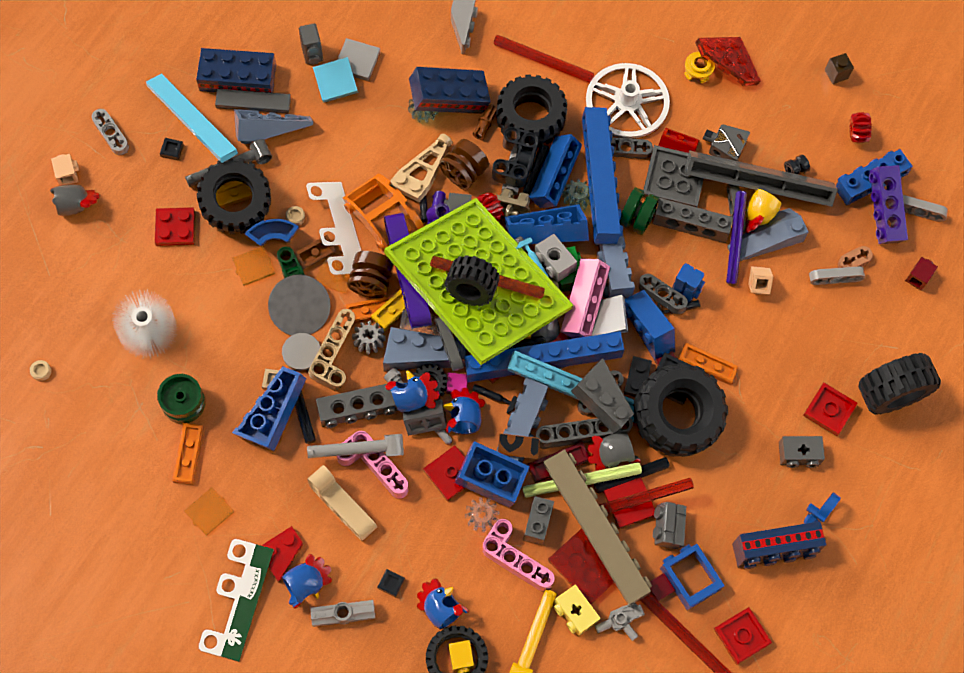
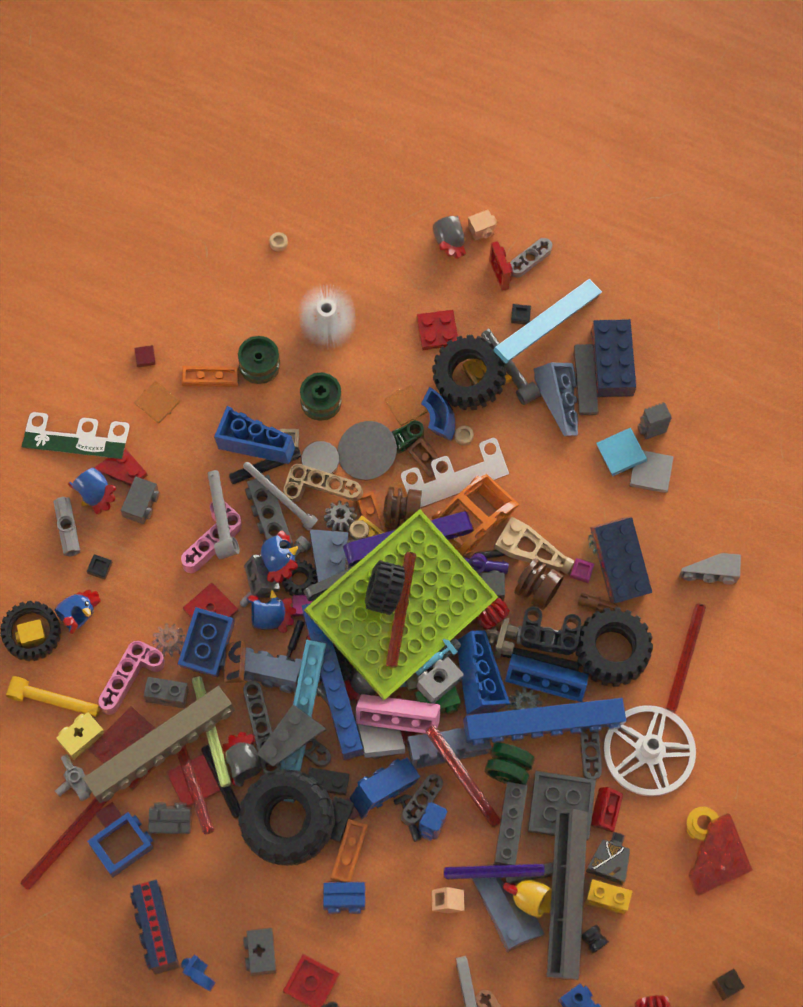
camera: 85 degrees right, 0 degrees up
(118, 155) = (500, 266): none -> red plate
(152, 519) = (145, 356): none -> dark red tile
(233, 341) = (320, 396): none -> dark green wheel
(323, 533) = (140, 500): none -> dark grey brick
(347, 510) = (170, 512): tan beam -> none
(368, 368) = (307, 519): none -> light grey piece
(388, 318) = (359, 530): none -> tan tile
(450, 129) = (582, 570): none -> dark pink tile
(539, 471) = (237, 721): dark red tile -> none
(648, 250) = (463, 776): none -> clear red axle
(742, 635) = (65, 898): red plate -> none
(752, 371) = (344, 897): none -> blue brick
(762, 147) = (608, 897): none -> yellow brick

